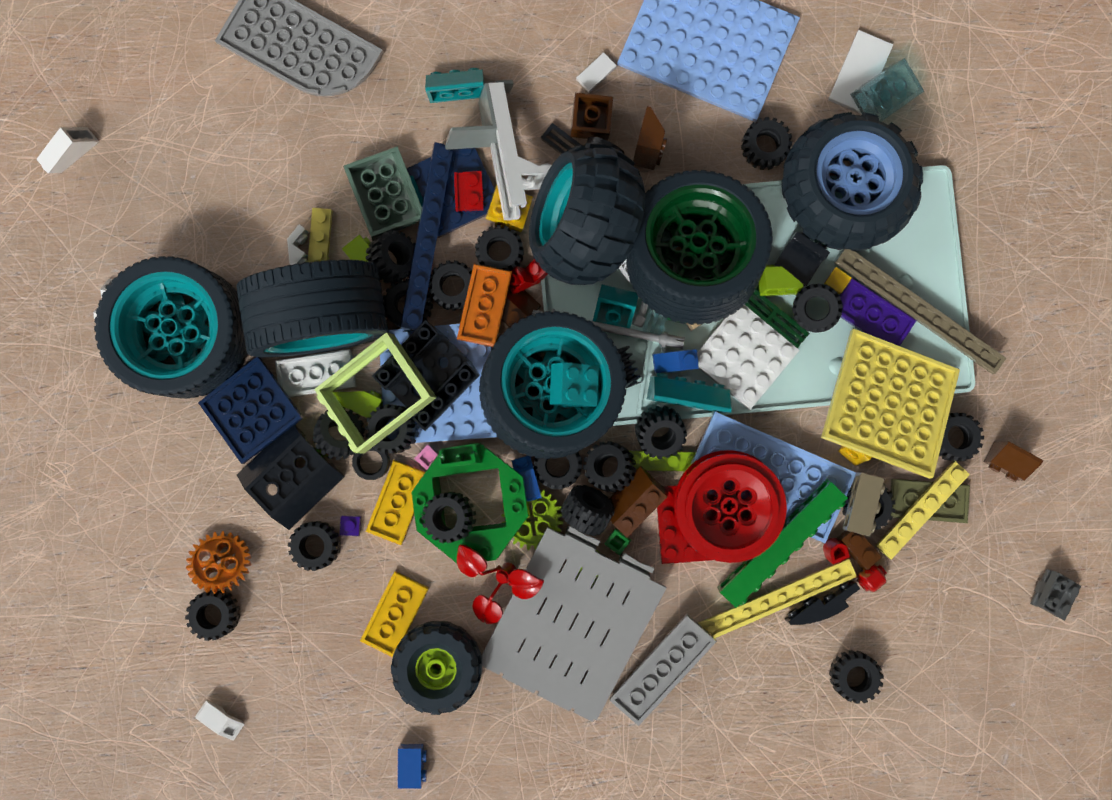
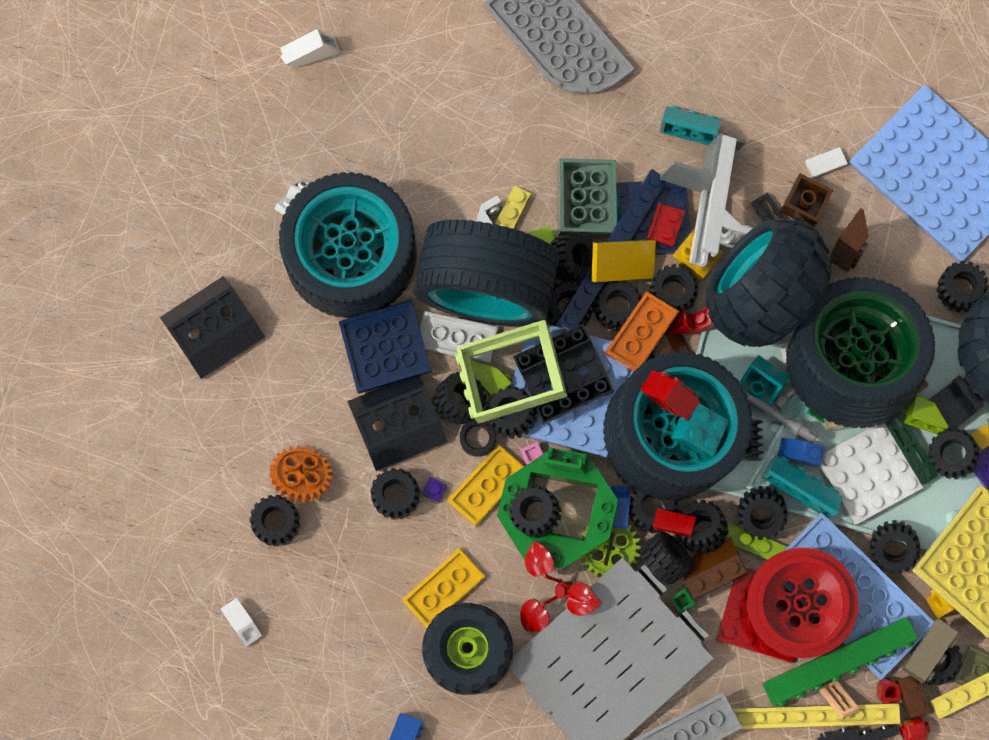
camera: 15 degrees right, 10 degrees down
(89, 463) = (219, 336): none -> black slope
(440, 242) = (623, 260): none -> yellow tile
(533, 364) = (670, 394): none -> red brick
(583, 476) = (674, 522): none -> red tile
(789, 582) = (842, 714): none -> light nougat tile
(801, 428) = (900, 561): none -> black tyre

